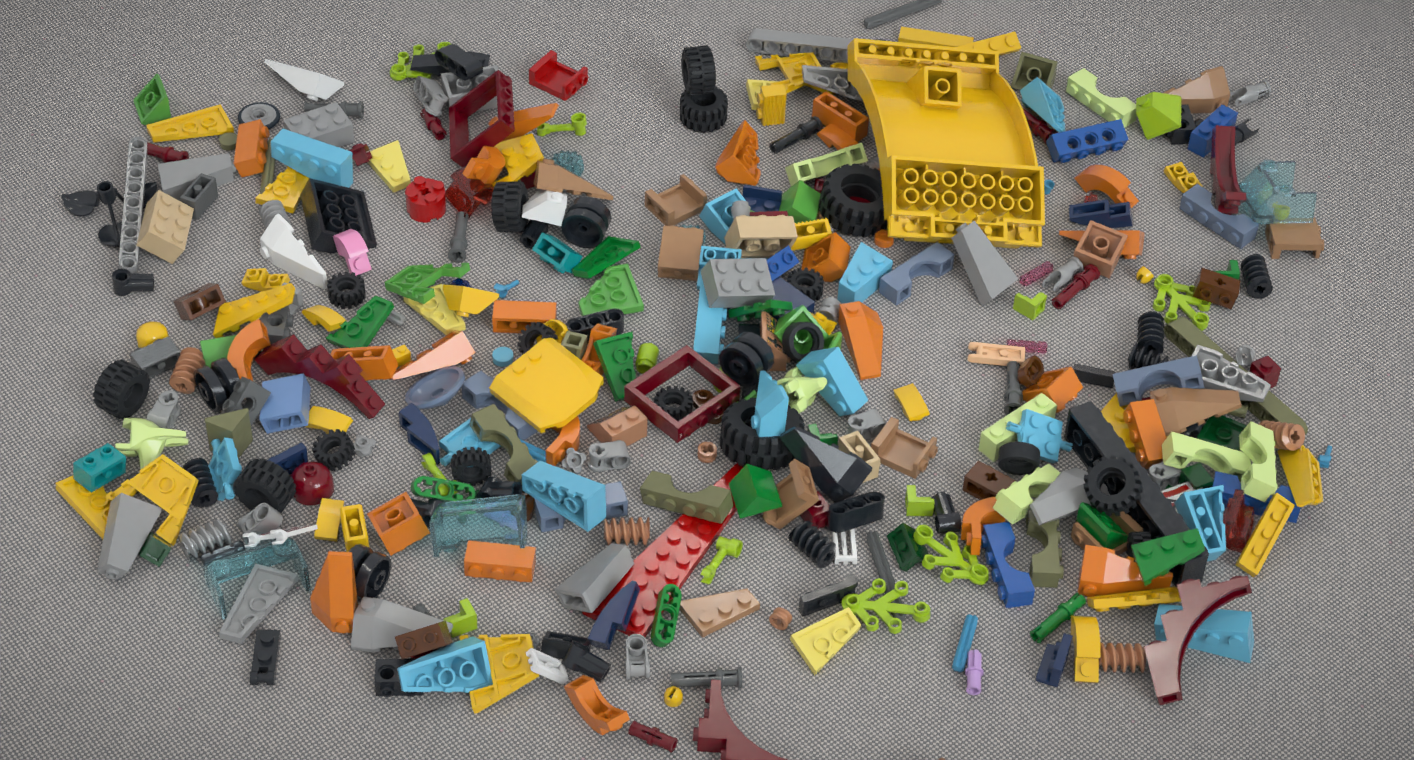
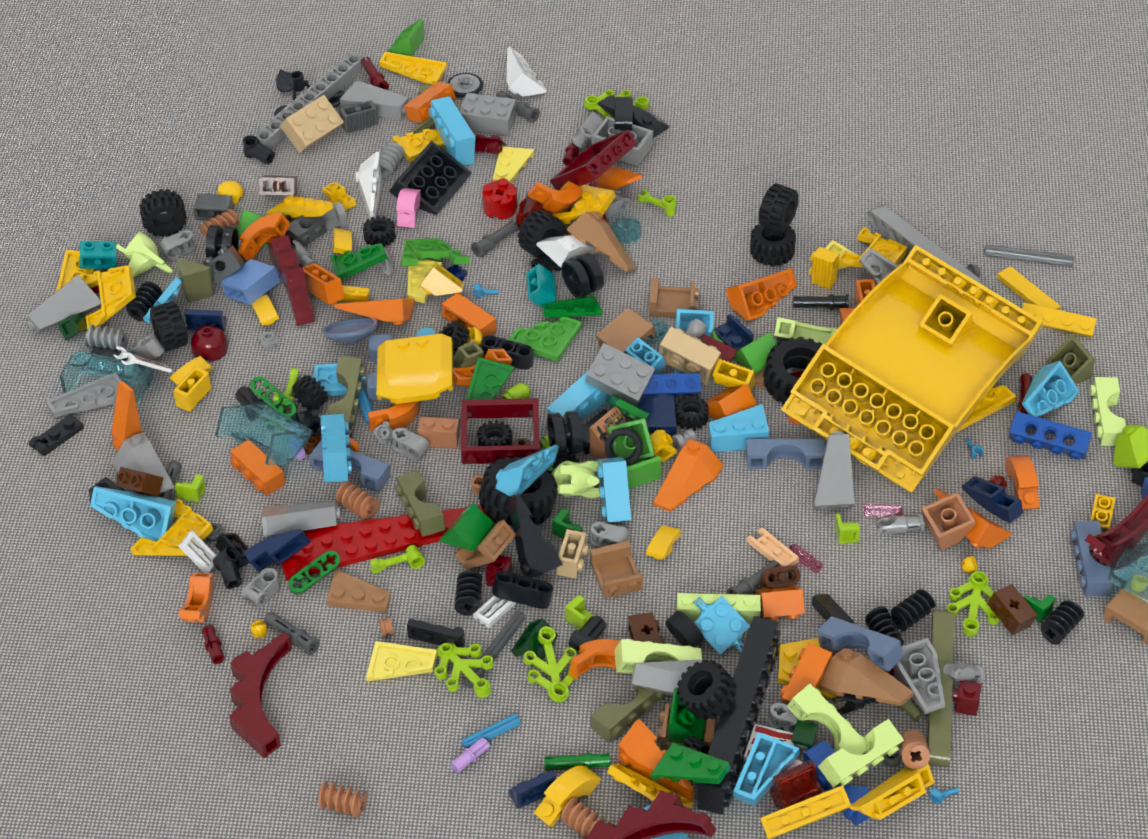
camera: 45 degrees right, 0 degrees up
(332, 440) = (244, 330): black tyre -> none
(370, 571) = (162, 418): black wheel -> none
(398, 523) = (217, 396): orange slope -> none
(419, 431) = (311, 351): dark blue slope -> none
(556, 77) = (697, 163): red panel -> none
(1013, 585) = (598, 681): blue arch -> none
(1080, 282) = (906, 538): dark red pin -> none
(1222, 432) = (872, 714): dark green plate -> none

